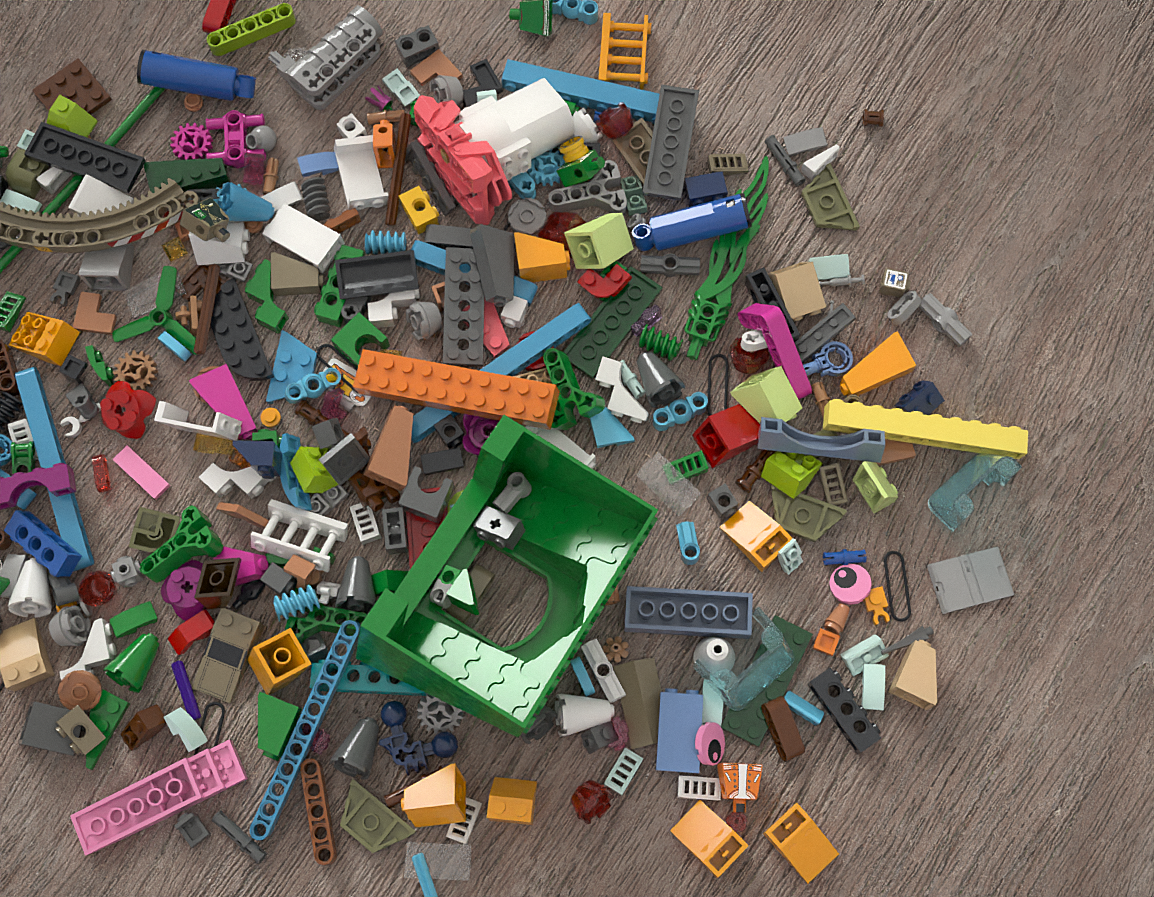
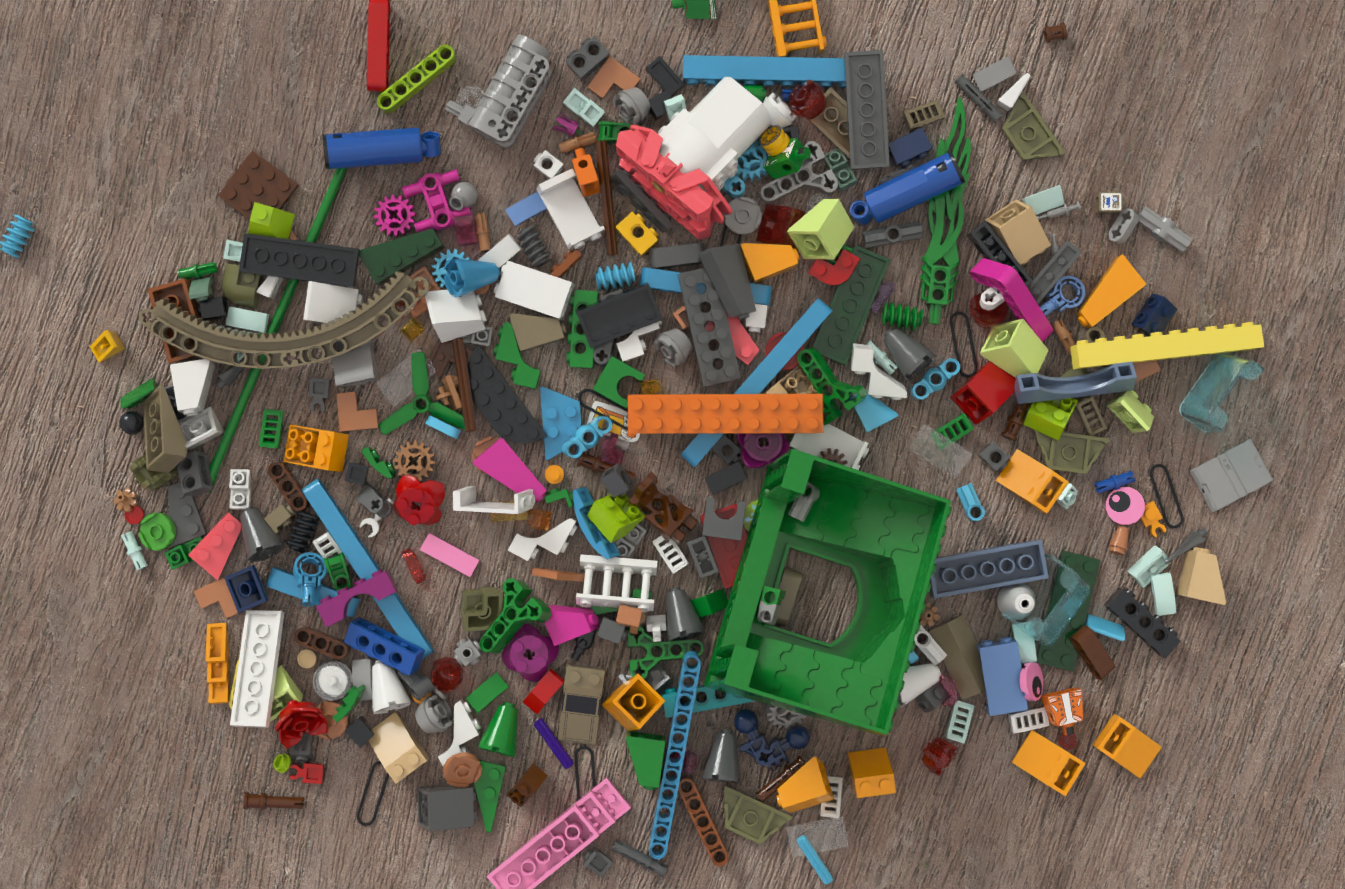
camera: 10 degrees left, 15 degrees up
(91, 737) = (466, 798): dark tan brick -> none
(181, 722) = (563, 776): light aqua slope -> none
(193, 102) = (382, 172): nougat plate -> none
(205, 193) = (426, 270): dark grey piece -> none
(206, 220) = (444, 304): torso -> none
(217, 582) = (559, 646): dark brown slope -> none
(261, 456) = (564, 523): dark blue slope -> none
(295, 602) = (634, 648): medium azure piece -> none
(345, 459) = (642, 507): dark grey plate -> none
(392, 451) = (682, 485): nougat slope -> none
(463, 593) = (787, 609): slope -> none
(499, 528) = (792, 531): dark grey brick -> none
(635, 220) = (849, 197): light grey bush -> none
(826, 642) = (1113, 564): orange plate -> none

